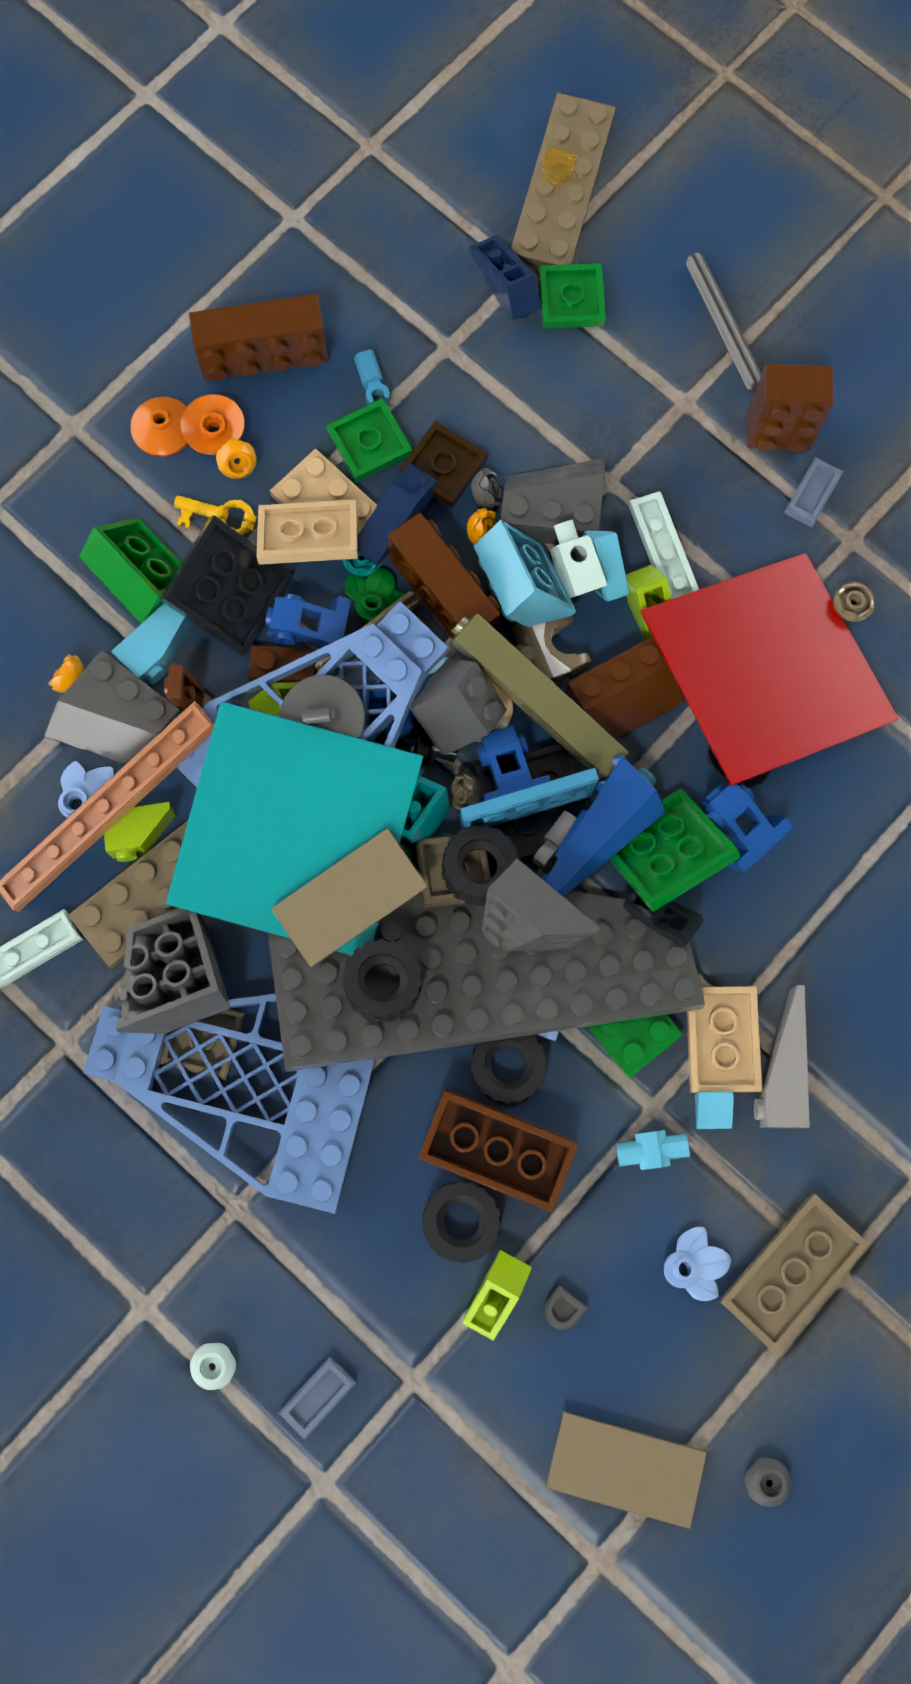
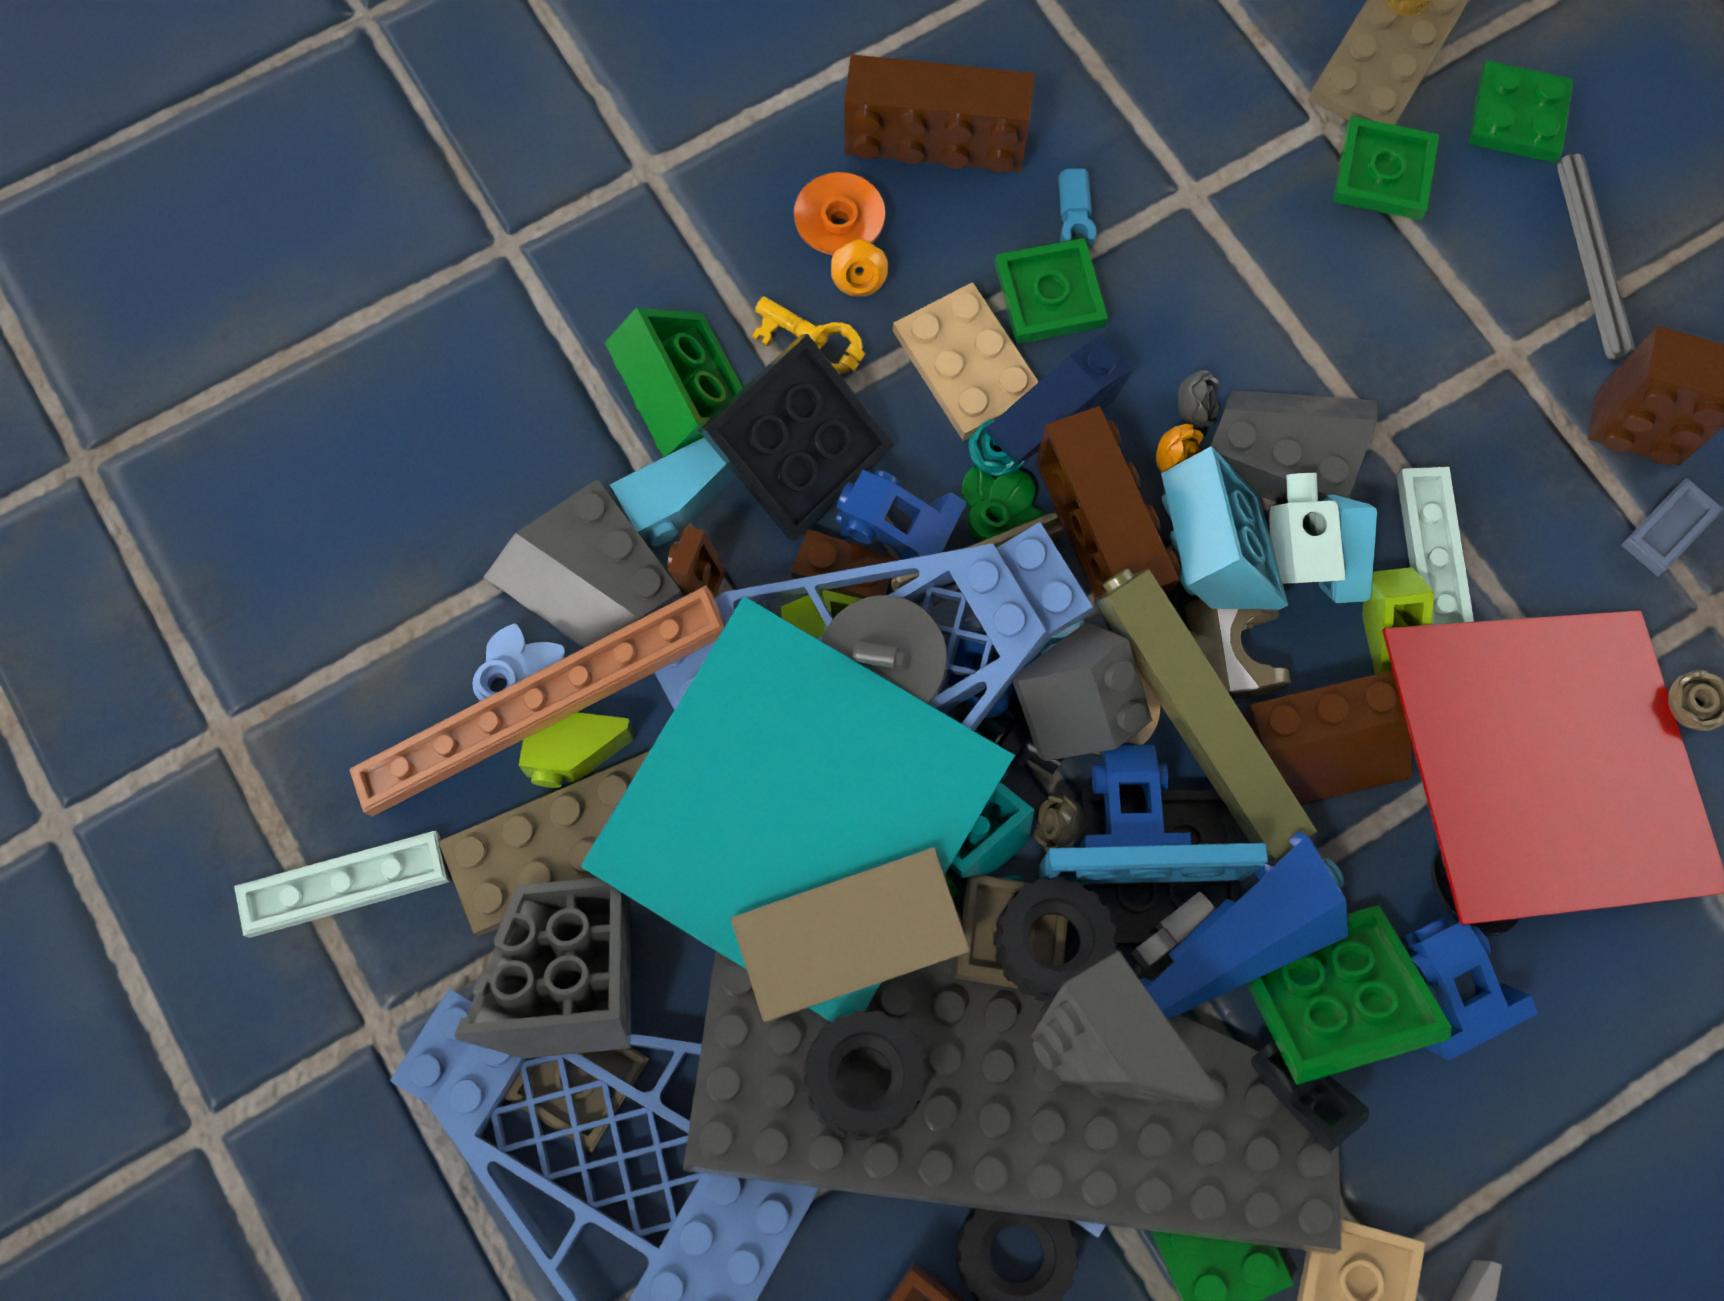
camera: 15 degrees right, 5 degrees down
(67, 673) = (540, 499): light orange plate -> none
(162, 438) = (761, 214): orange dish -> none
(307, 532) = (931, 392): tan plate -> none
(447, 460) = (1155, 345): dark brown plate -> none
(508, 277) = (1302, 121): dark blue slope -> none
(653, 231) = (1521, 111): none -> green plate

